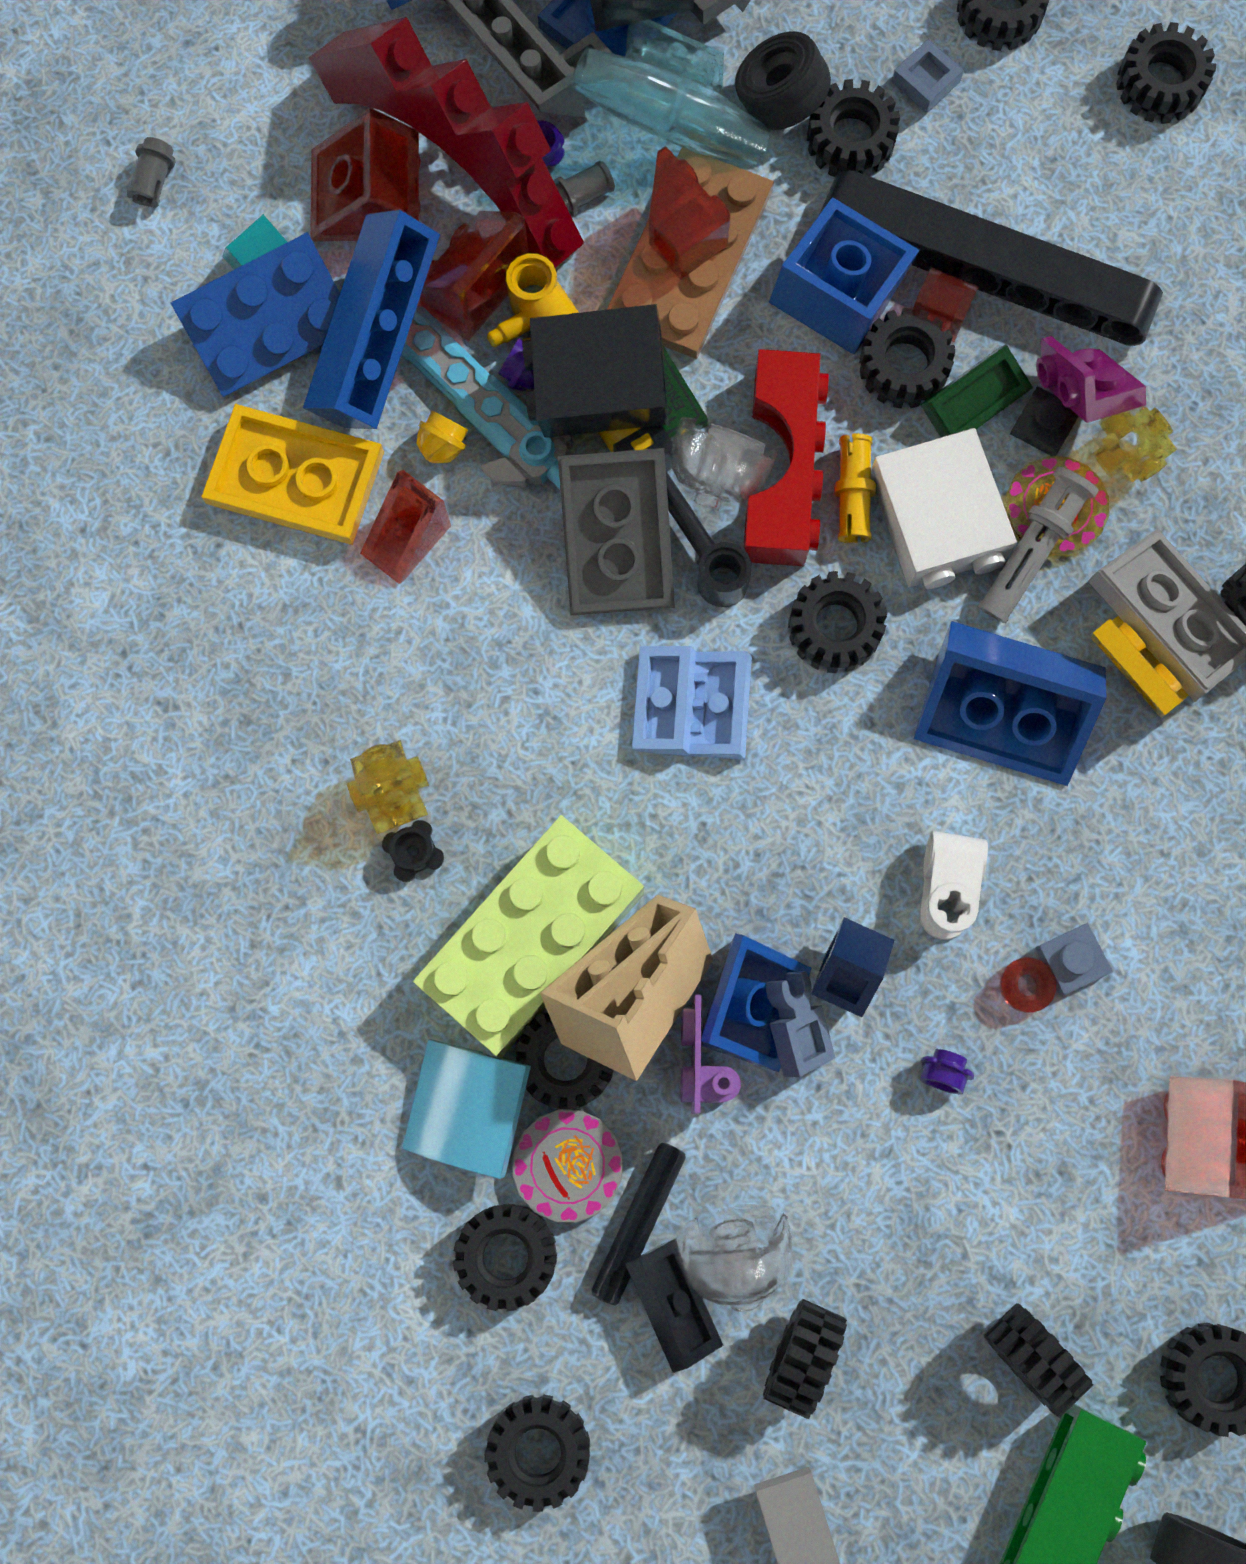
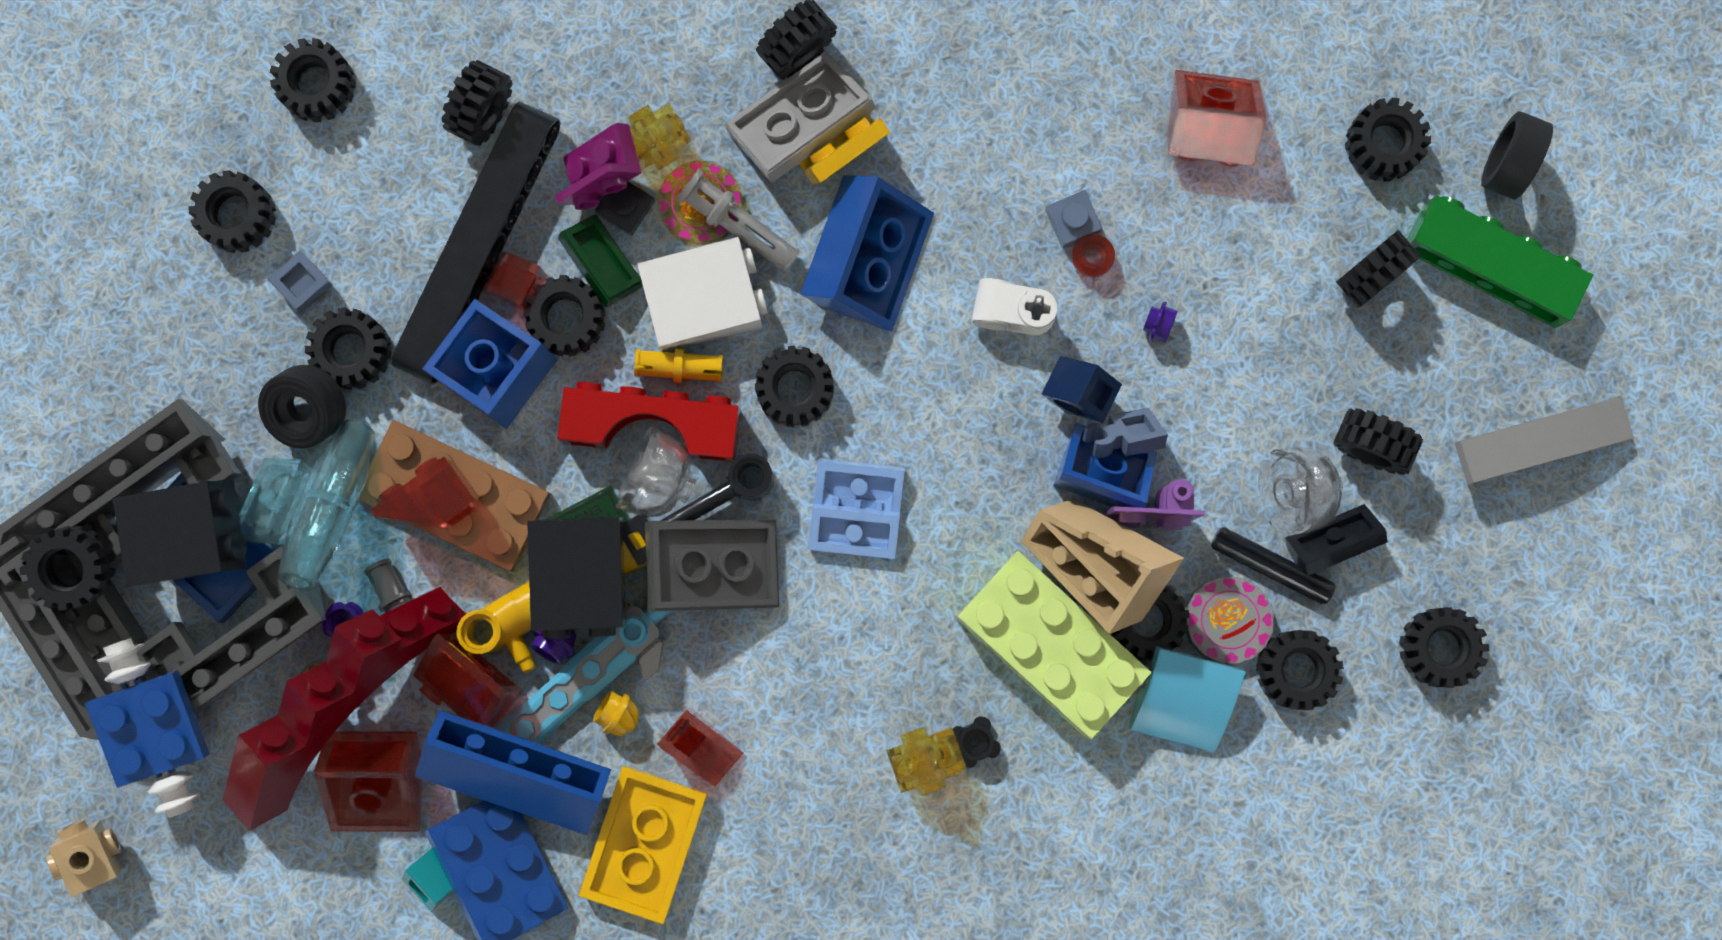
camera: 90 degrees left, 5 degrees up
(1156, 241) = (477, 102): none -> black tyre

